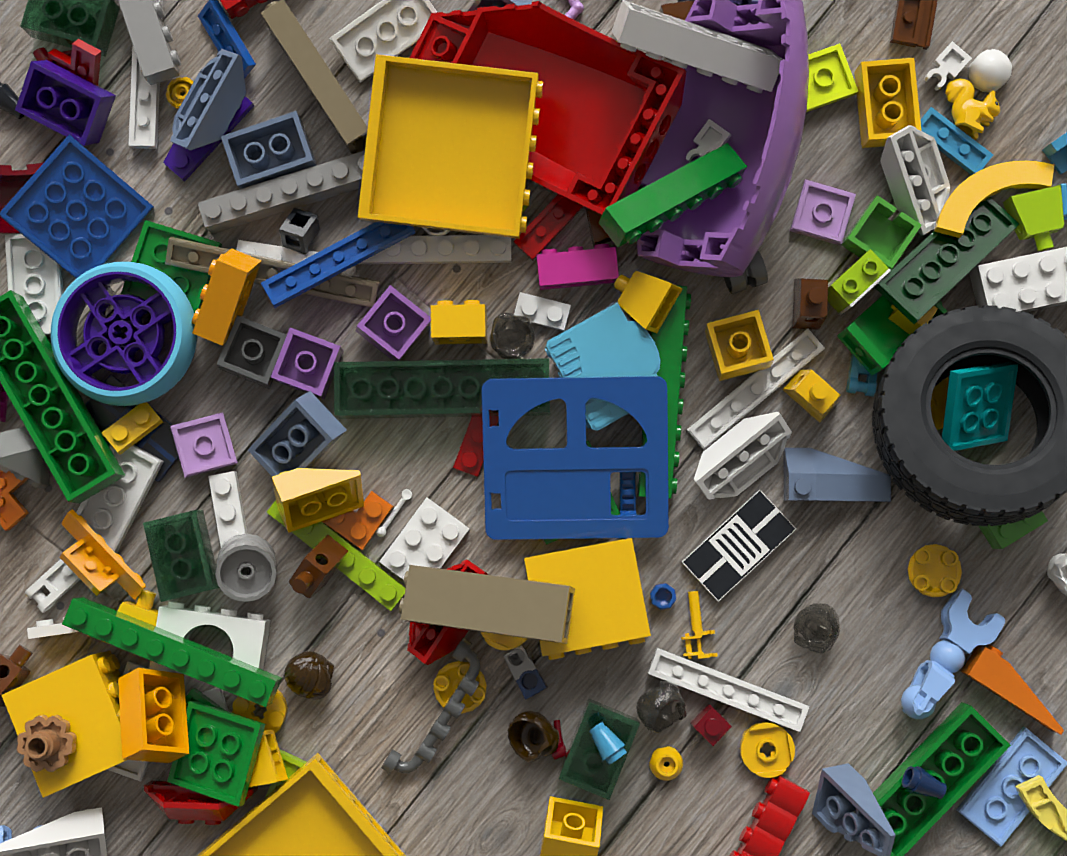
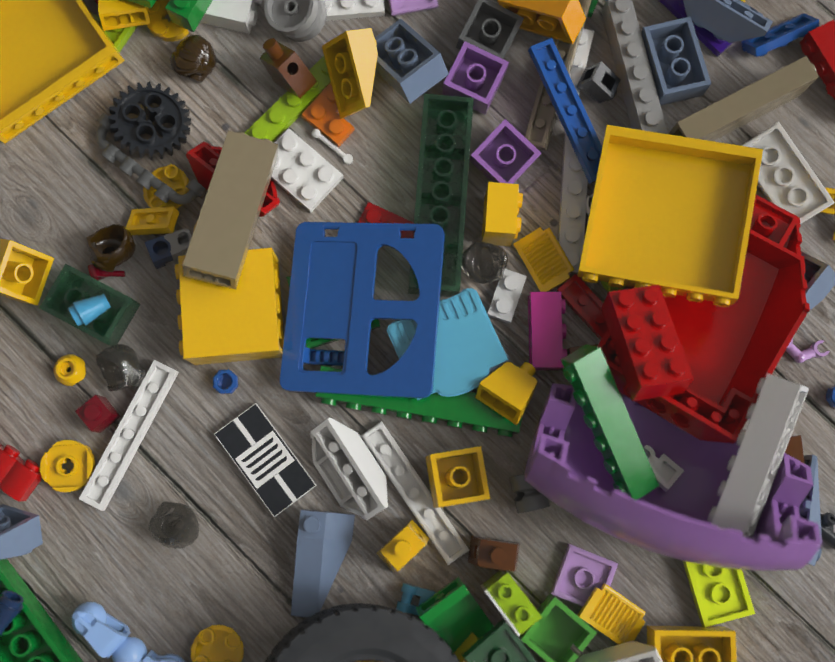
camera: 85 degrees right, 5 degrees down
(372, 695) = (169, 111): none -> black gear
(498, 695) = (152, 221): none -> yellow plate
(500, 274) = (544, 259): none -> yellow window
(591, 162) = (646, 343): none -> red brick
(696, 622) = (220, 411): yellow piece -> none
(856, 181) = (613, 614): none -> yellow window

